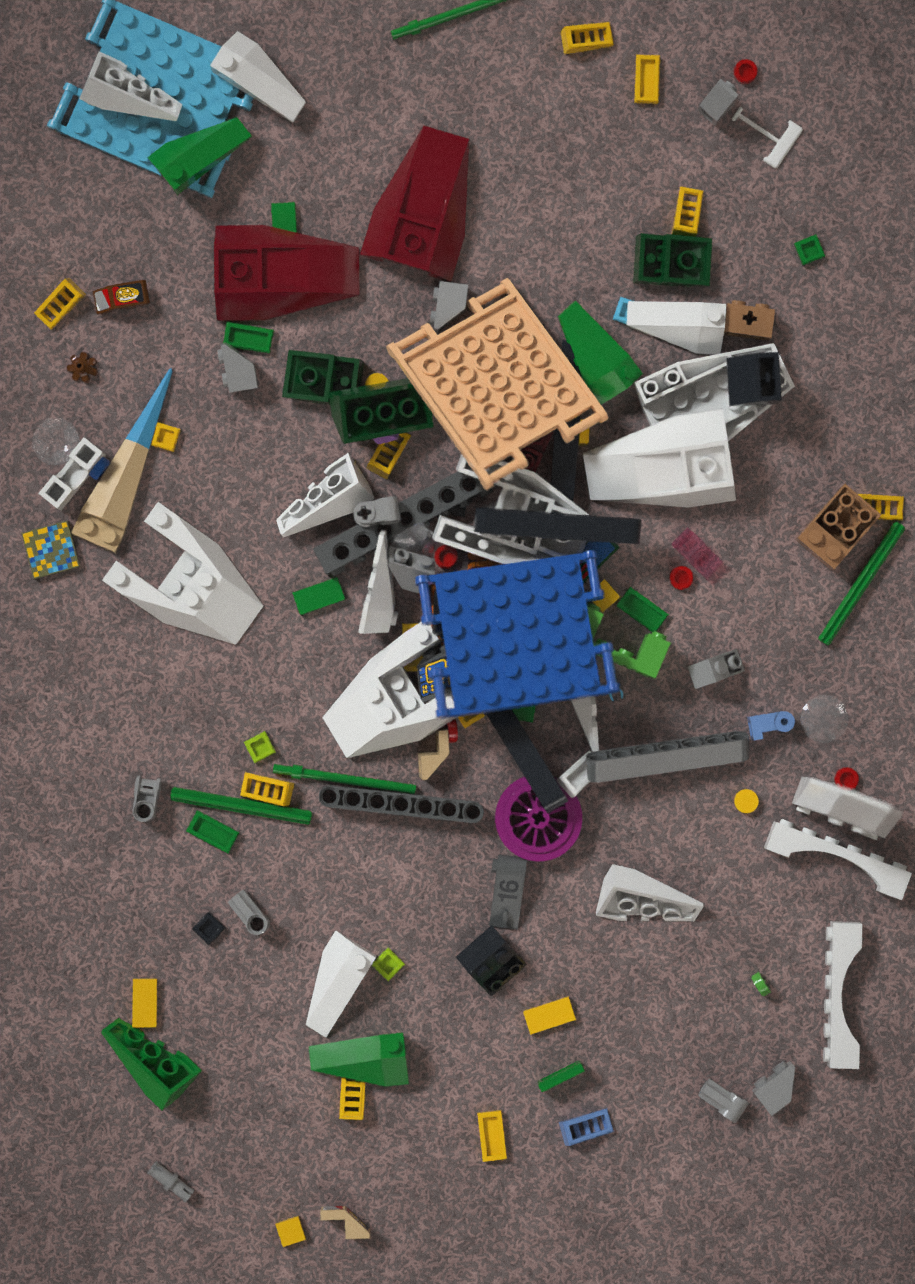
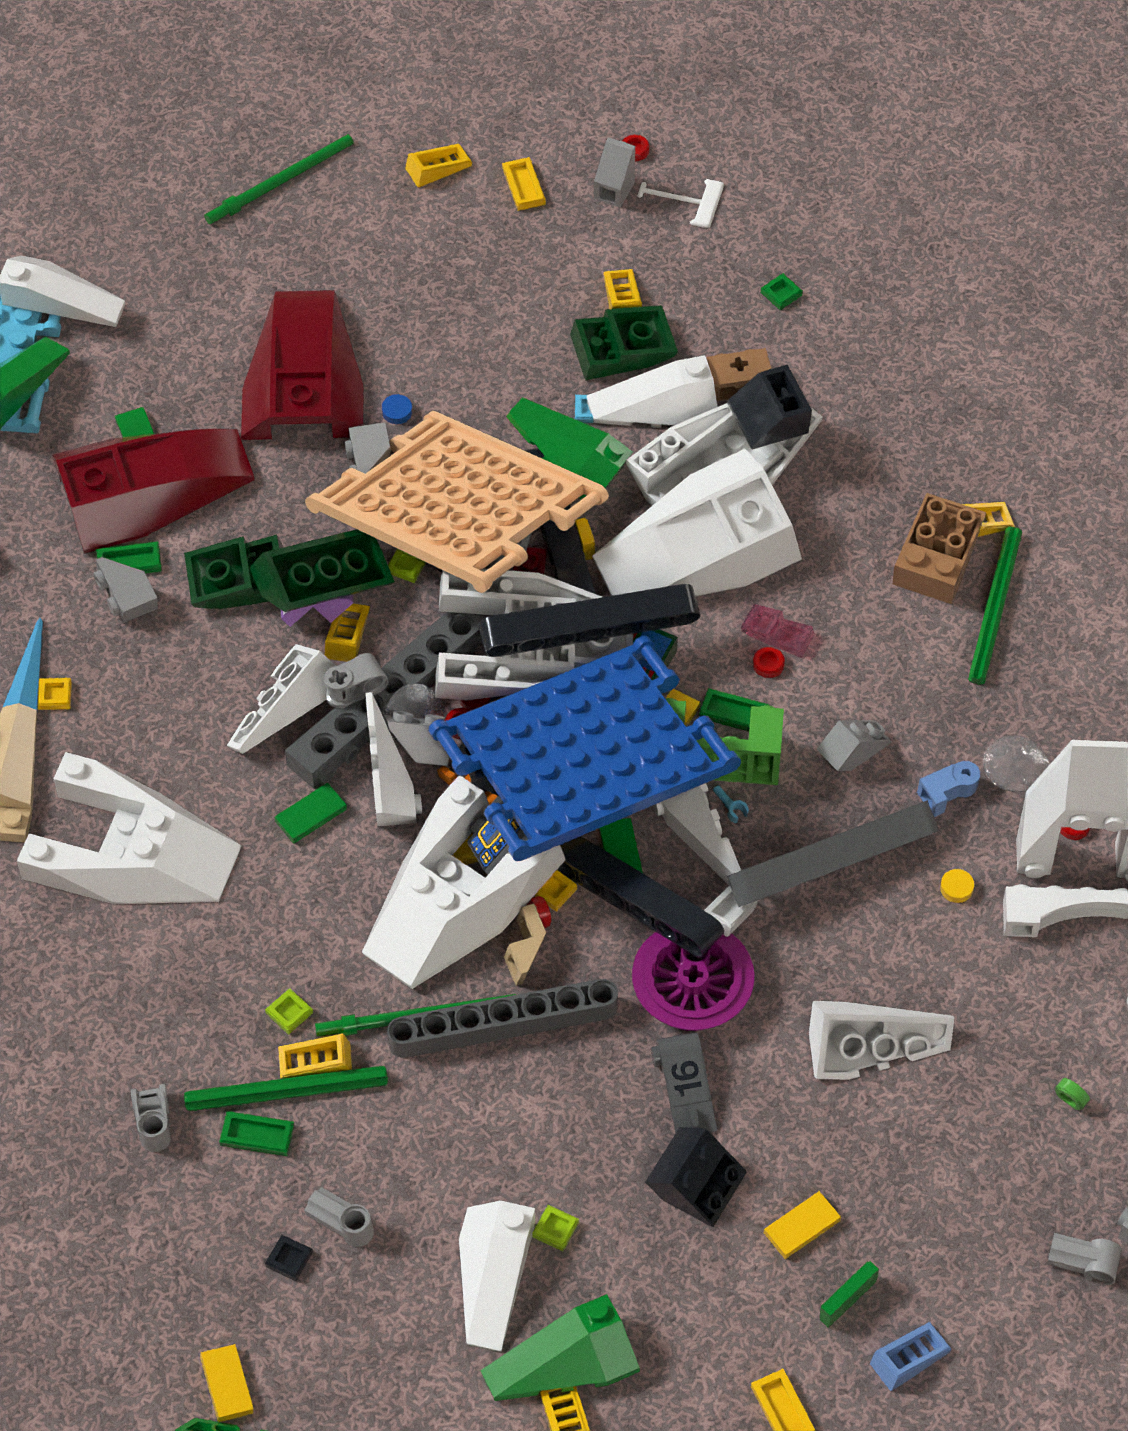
camera: 15 degrees left, 30 degrees down
(483, 265) = (397, 409): none -> blue tile

